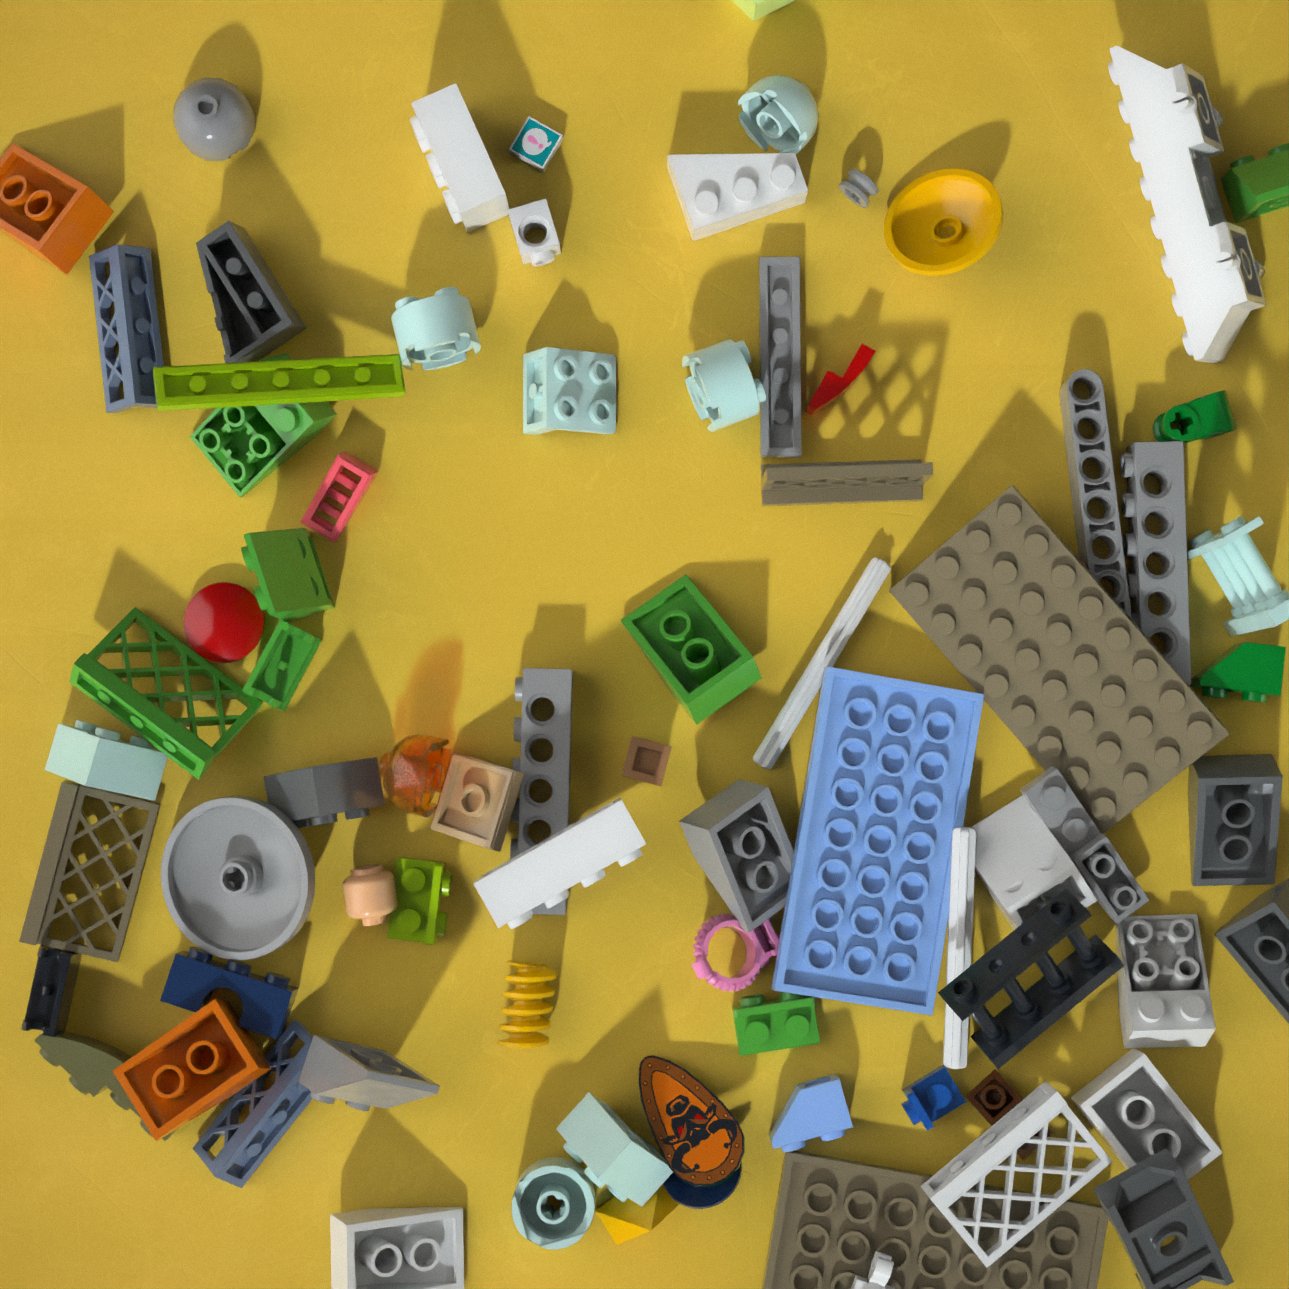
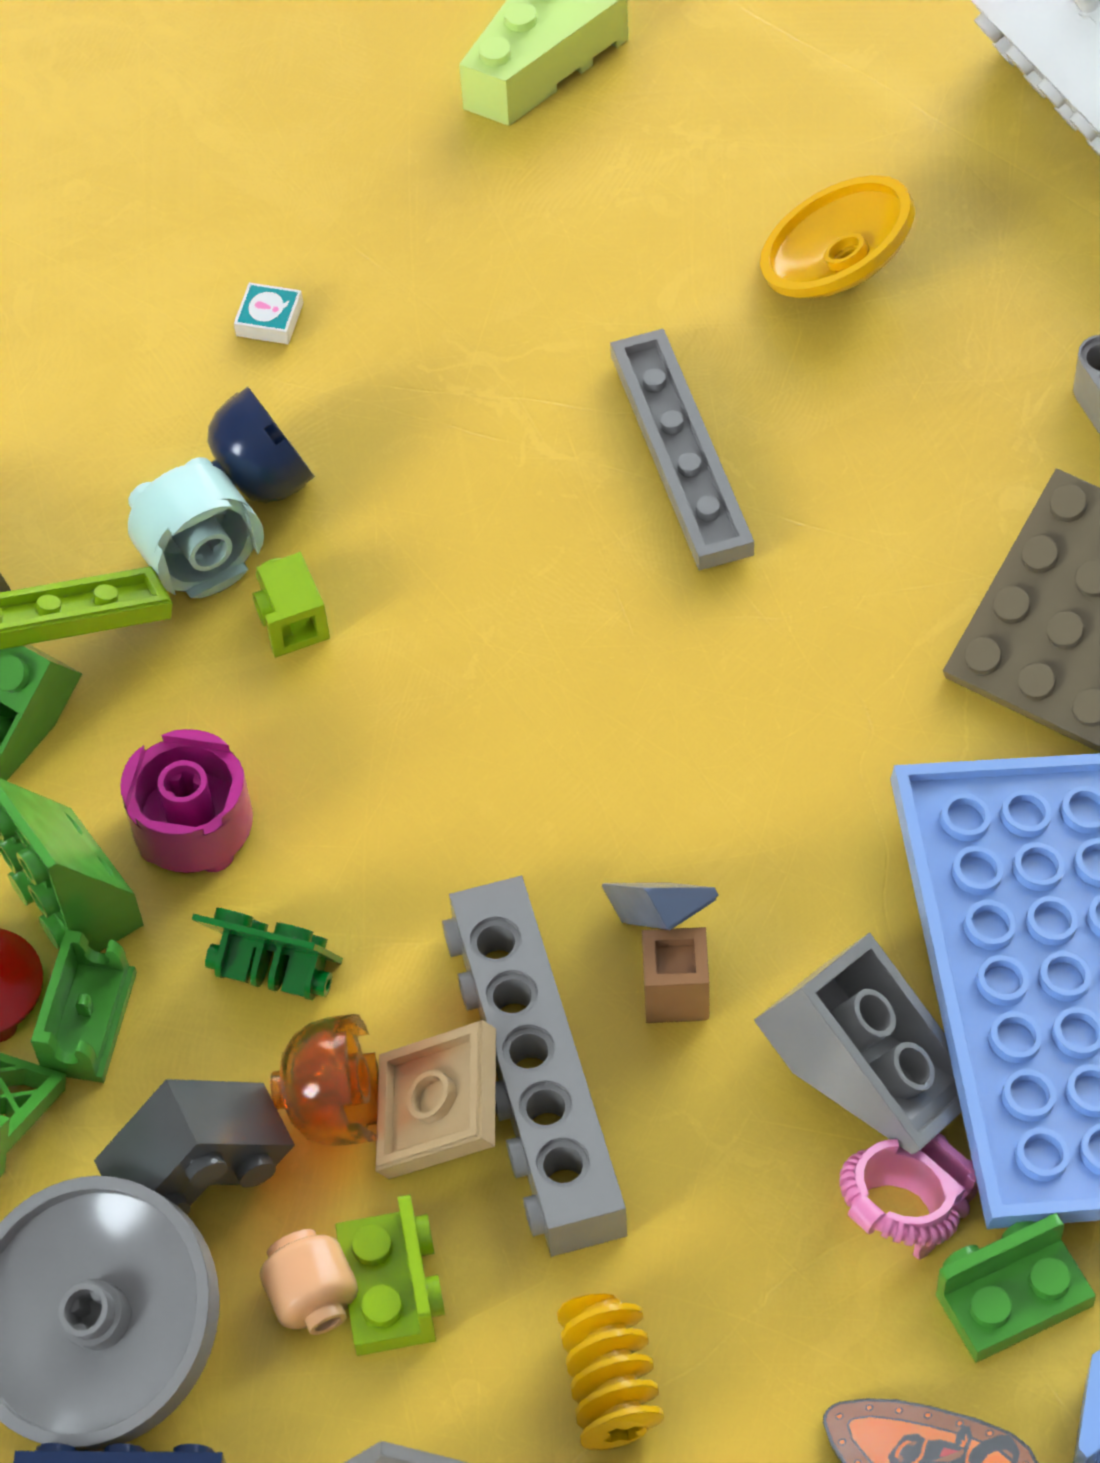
camera: 10 degrees left, 30 degrees down
(342, 461) = (104, 732): coral slope -> none
(374, 519) = (187, 802): none -> dark pink brick
(401, 661) = (248, 948): none -> green hinge
(458, 159) = (169, 331): white brick -> none
(484, 402) = (290, 605): none -> lime brick
(493, 278) = (255, 450): none -> dark blue cylinder
(534, 216) = (297, 396): white brick -> none
(559, 863) = (591, 1104): white brick -> none
(569, 391) = (397, 553): light aqua bracket -> none
(653, 712) = (658, 903): none -> sand blue slope
(692, 649) = (694, 816): bright green slope -> none
(723, 384) = (613, 483): light aqua brick -> none
(734, 188) = (548, 280): white wedge -> none
(779, 113) = (576, 189): light aqua cylinder -> none
(824, 657) = (879, 805): white axle -> none
(834, 386) = (770, 451): red slope -> none
(844, 482) = (847, 557): dark tan fence -> none
(858, 188) = (712, 242): light grey bush -> none

